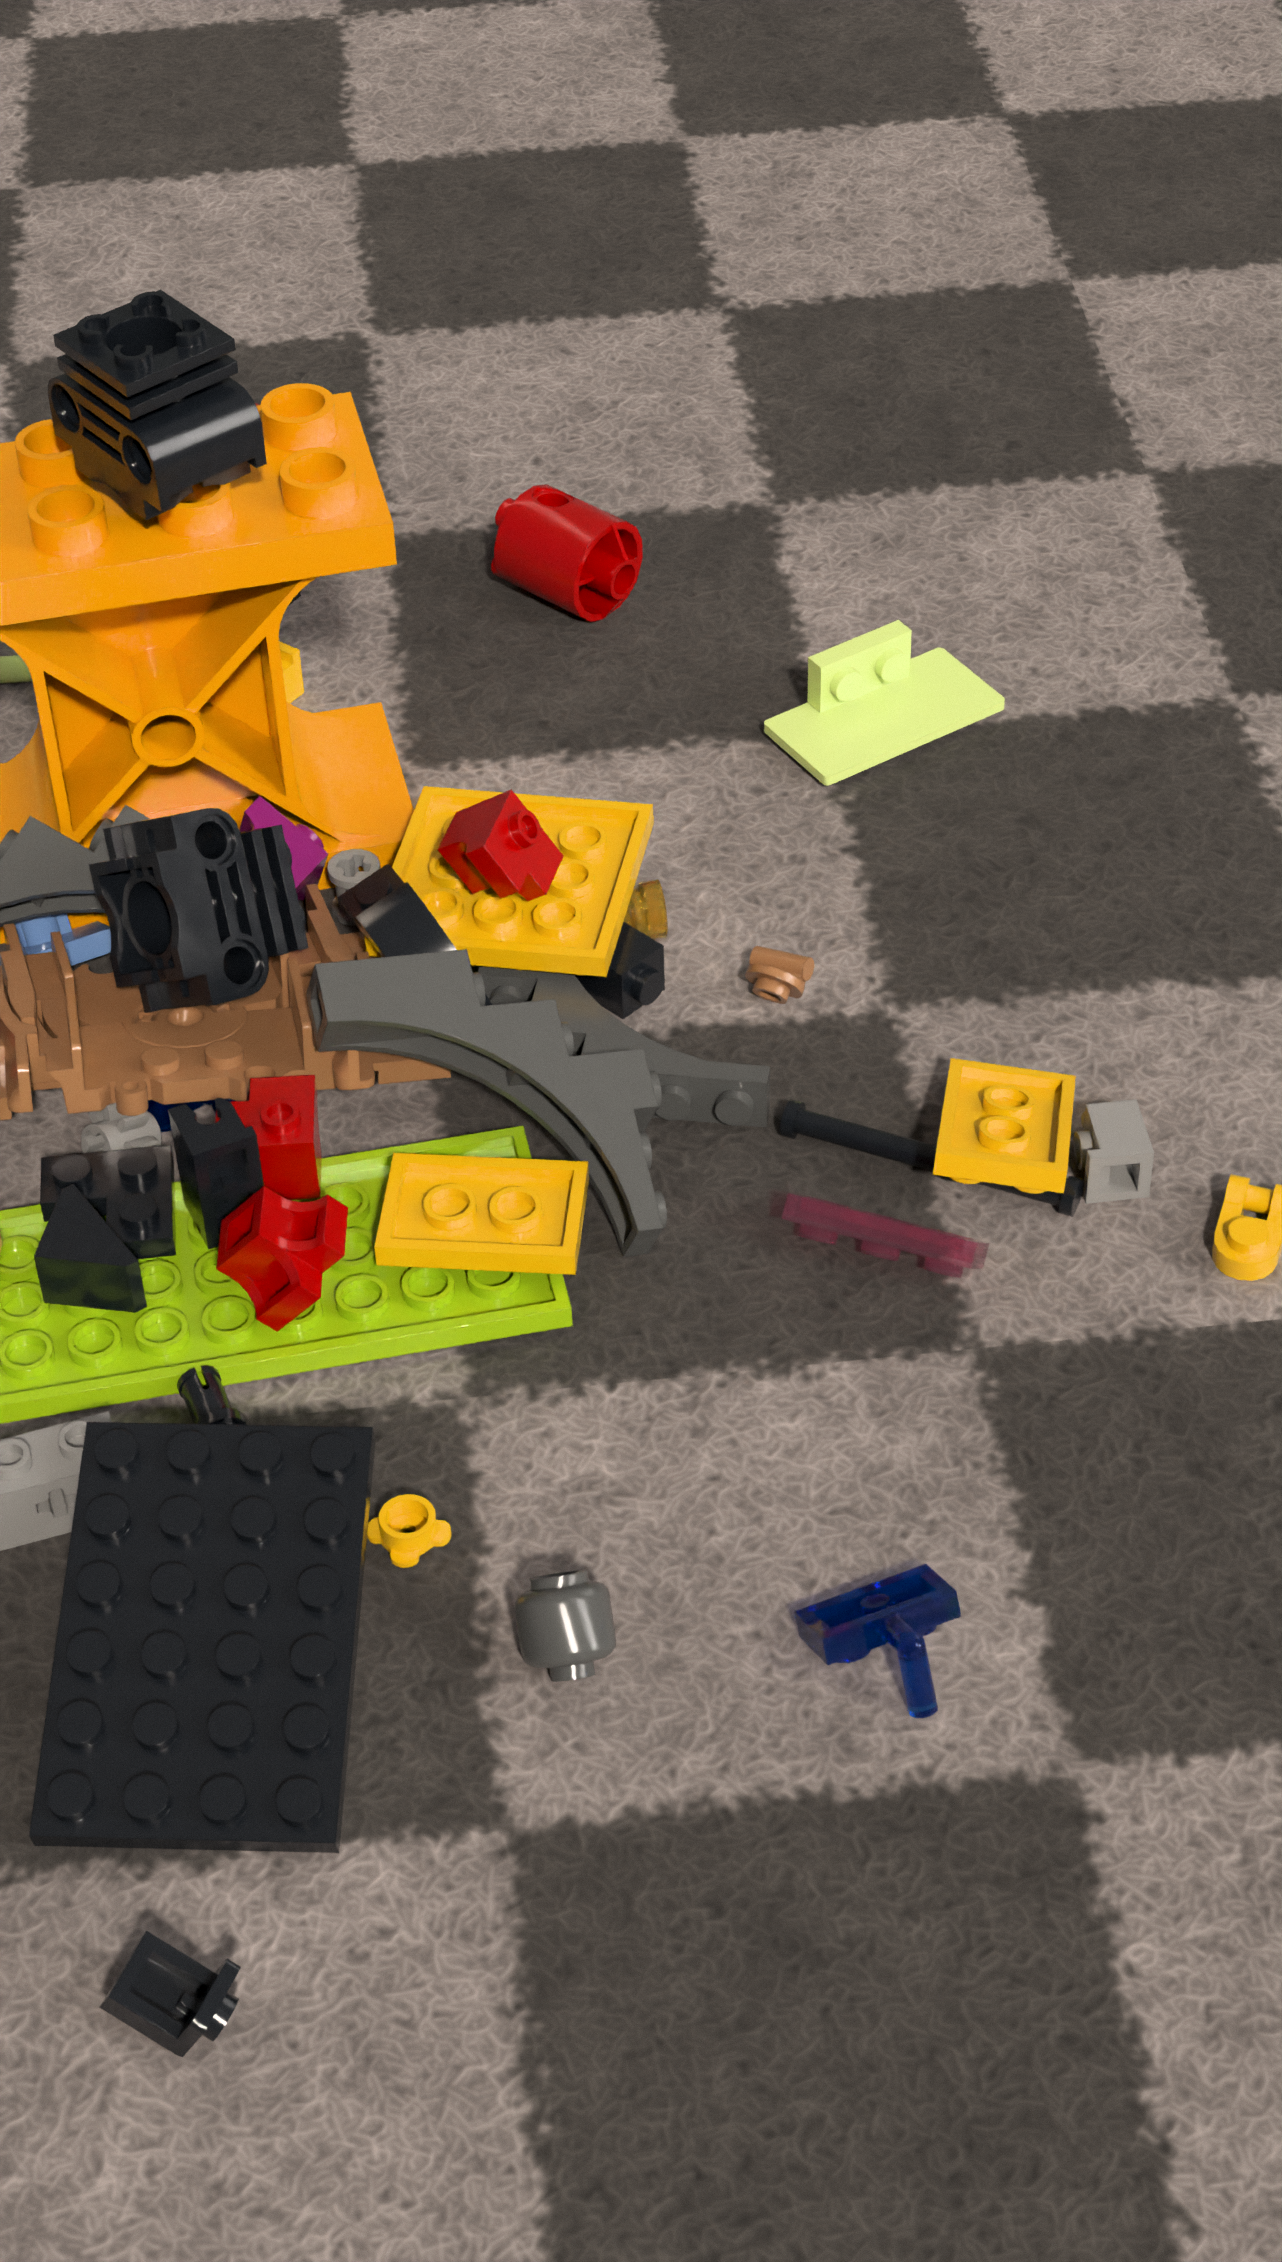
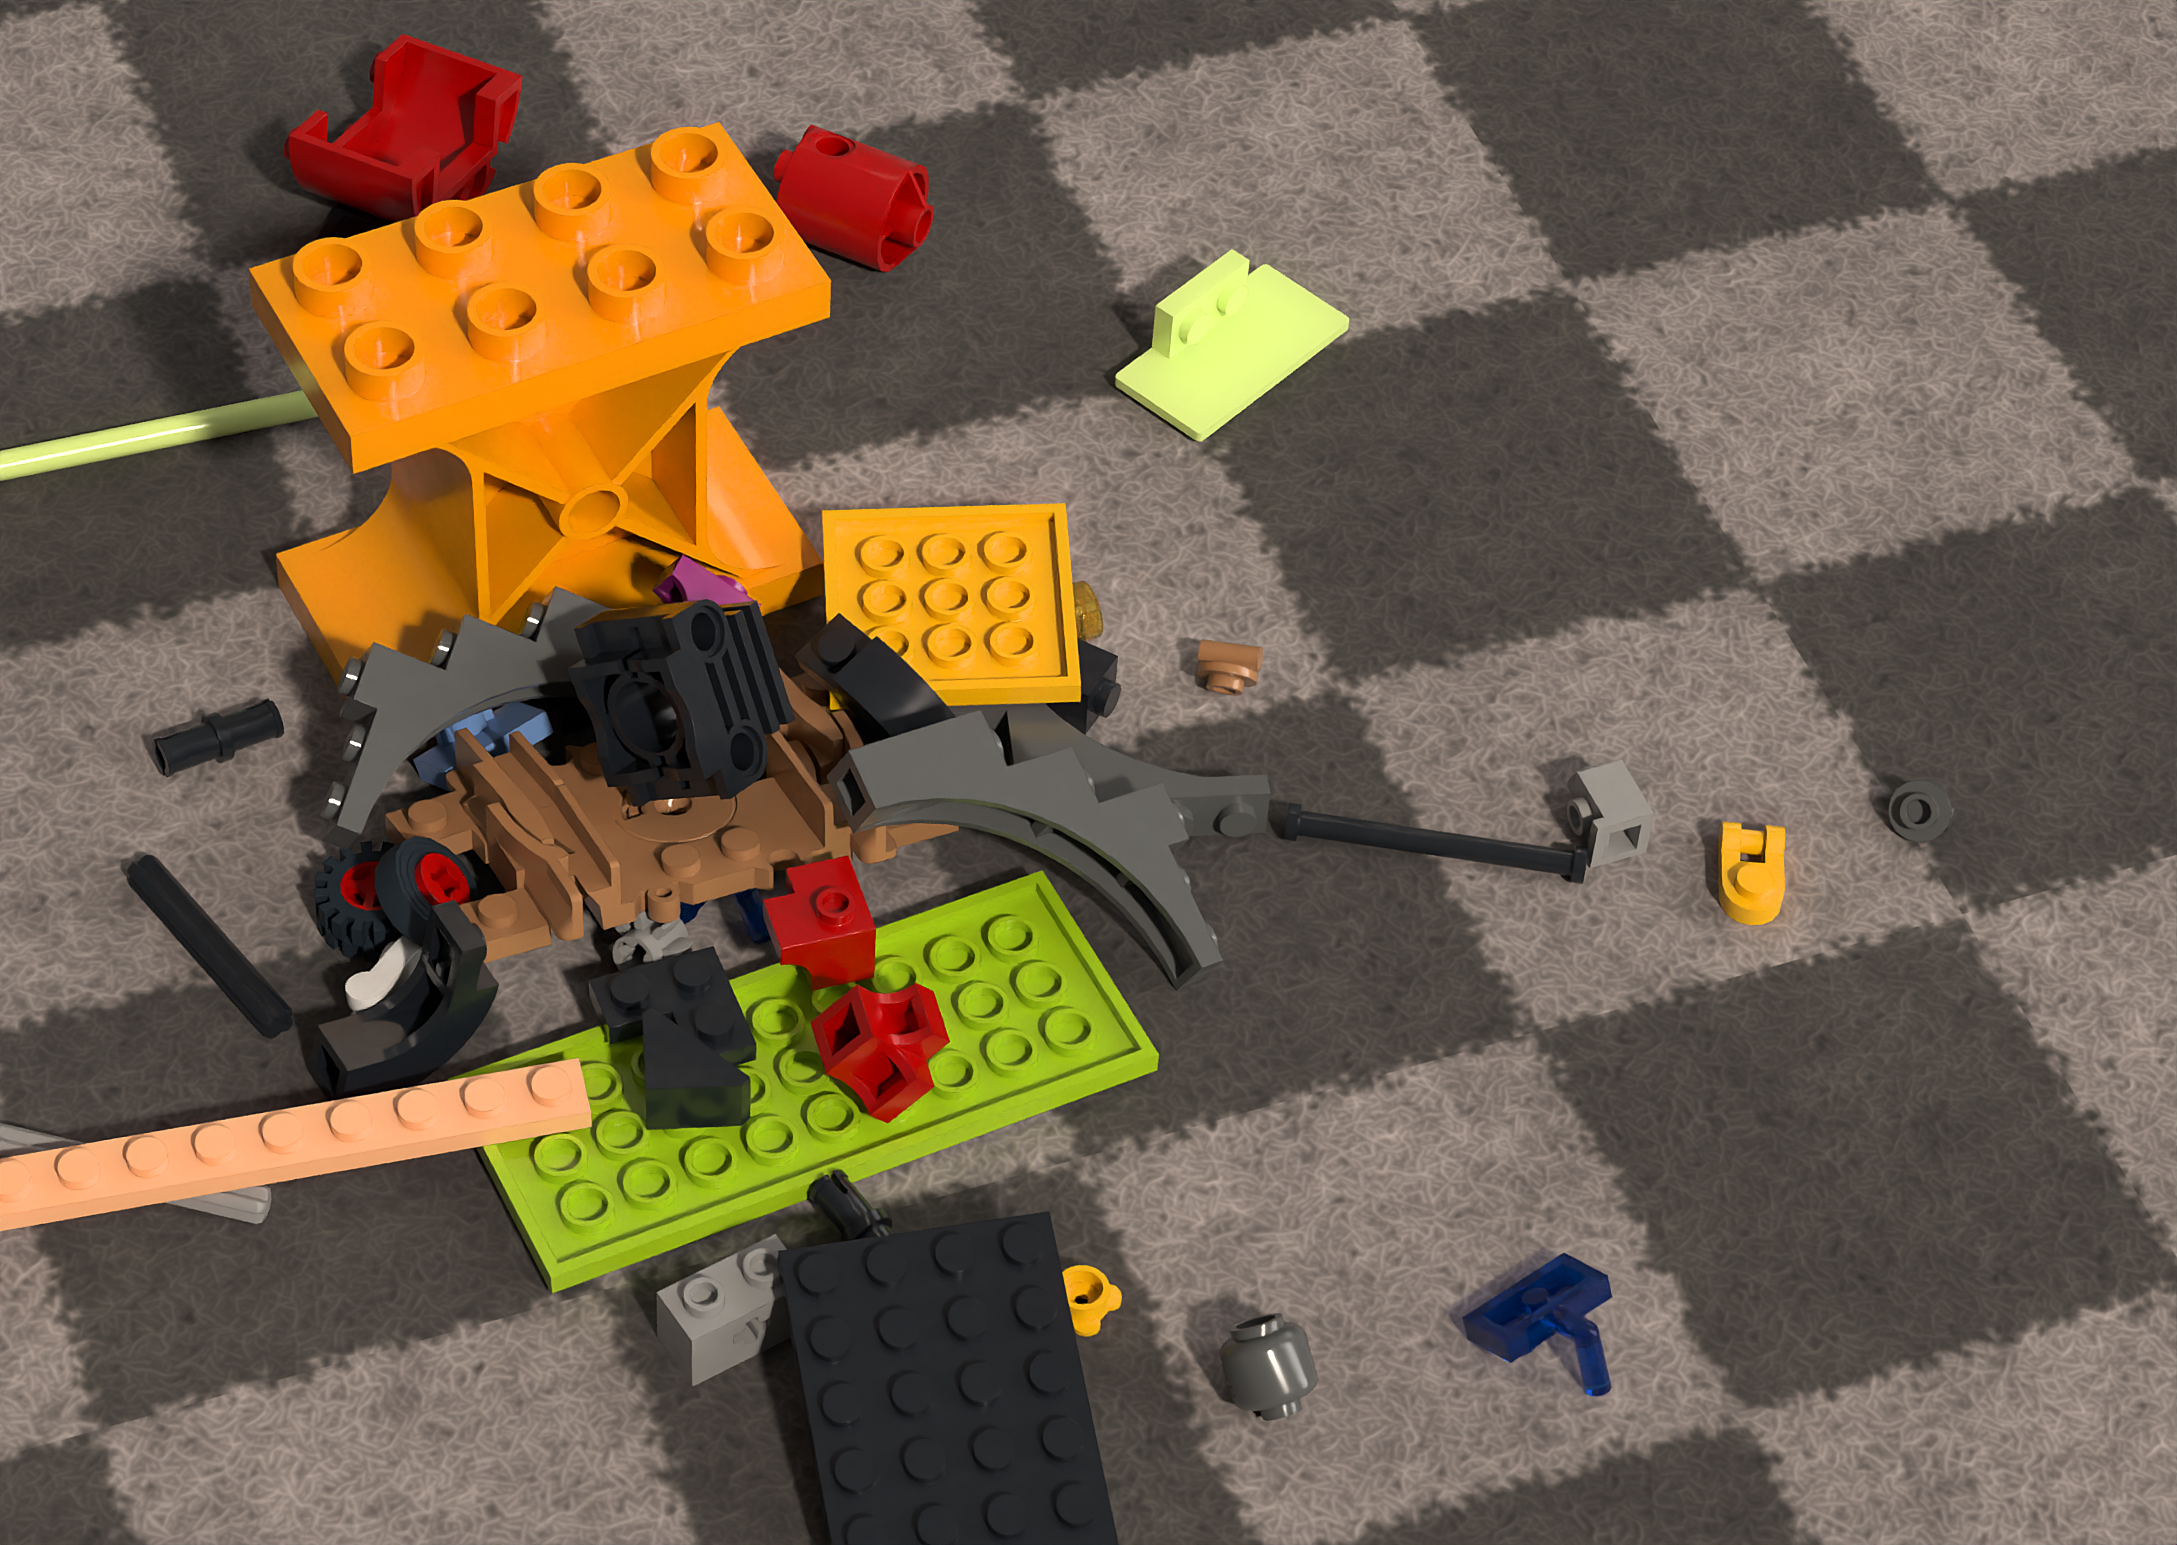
camera: 20 degrees left, 5 degrees up
(153, 403) = (587, 196): black piece -> none
(215, 1165) = (789, 974): black hinge -> none
(345, 874) = (787, 614): light grey bush -> none
(483, 1213) = (1048, 972): yellow plate -> none
(501, 848) = (946, 579): red brick -> none
(884, 1235) = (1422, 932): clear pink plate -> none
(1005, 1126) = (1504, 802): yellow plate -> none

